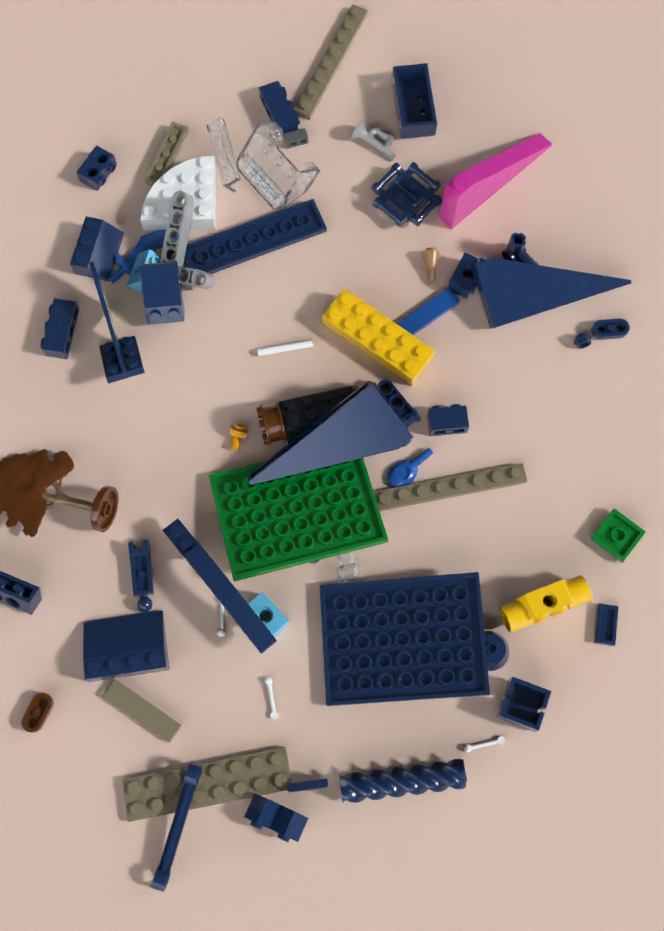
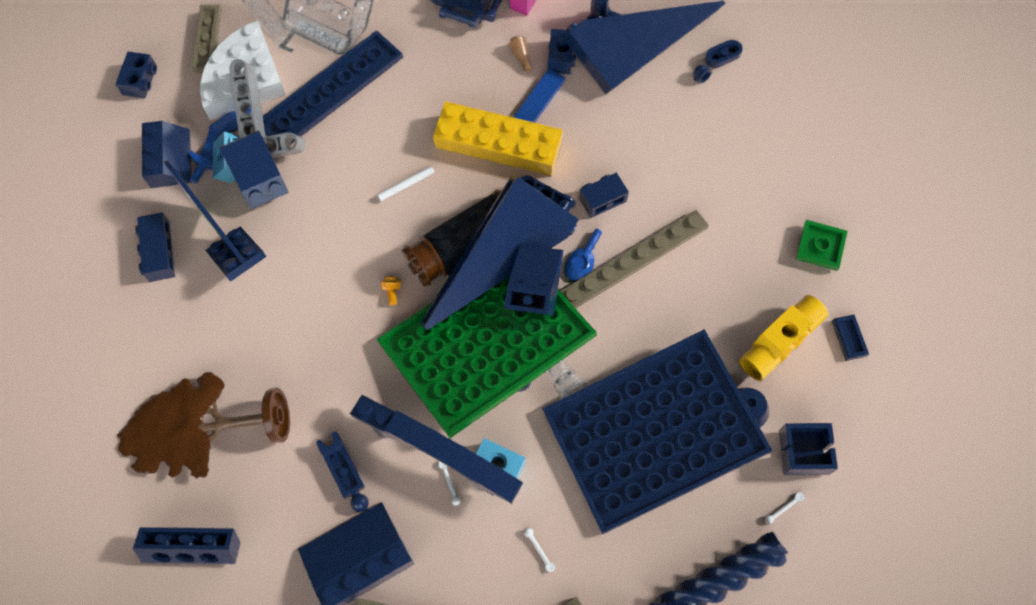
camera: 20 degrees left, 5 degrees down
(353, 477) = (534, 280): none -> dark blue slope

